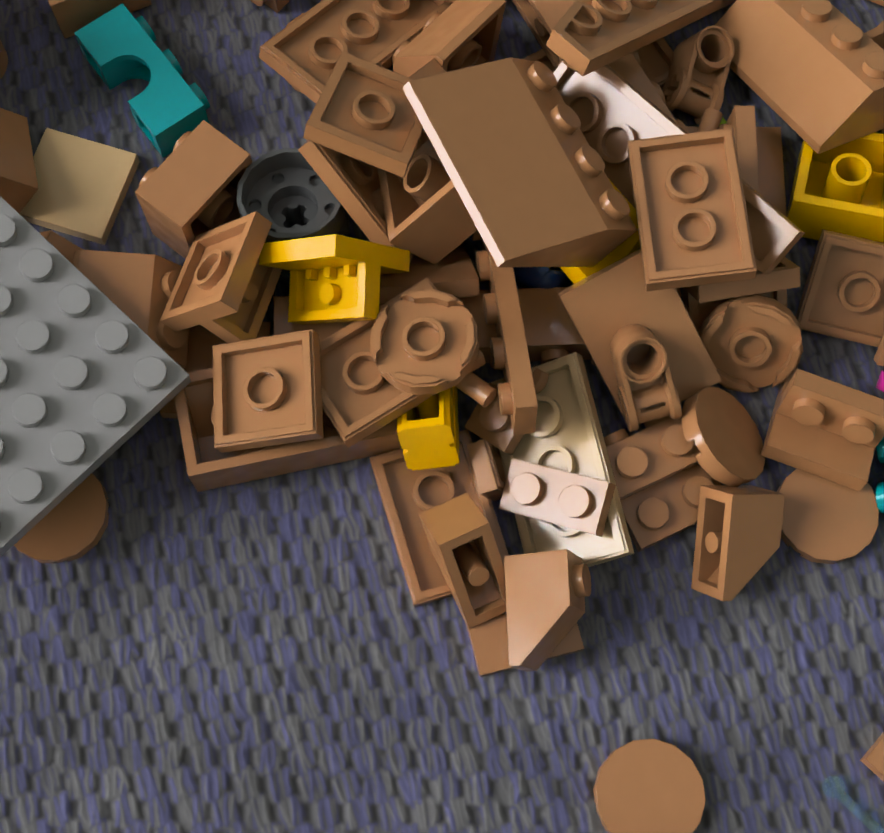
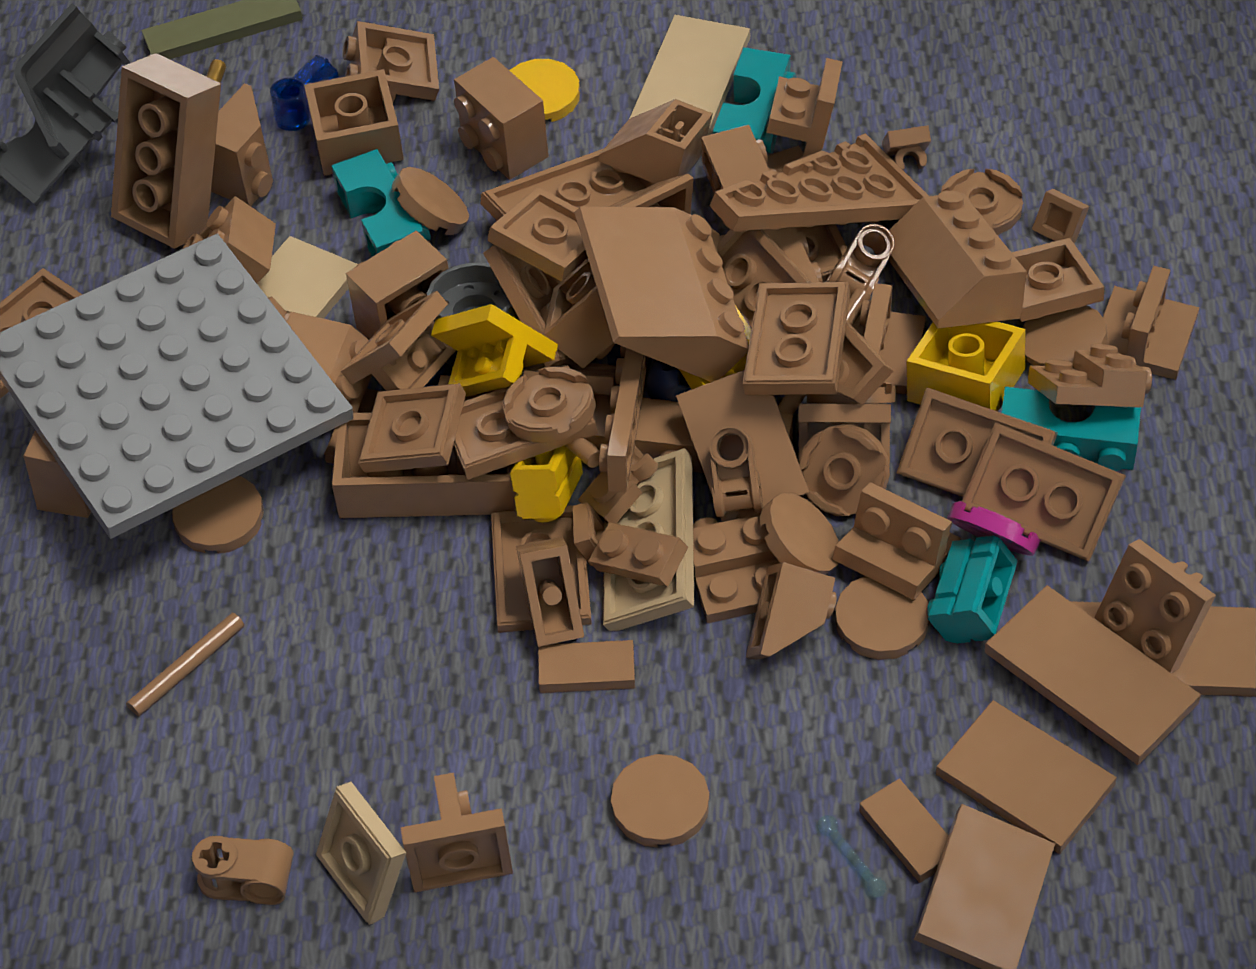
camera: 20 degrees right, 20 degrees down
(67, 722) = (185, 664): none -> medium nougat bar
(199, 61) = (430, 200): none -> medium nougat tile
(542, 603) = (601, 628): medium nougat slope -> none

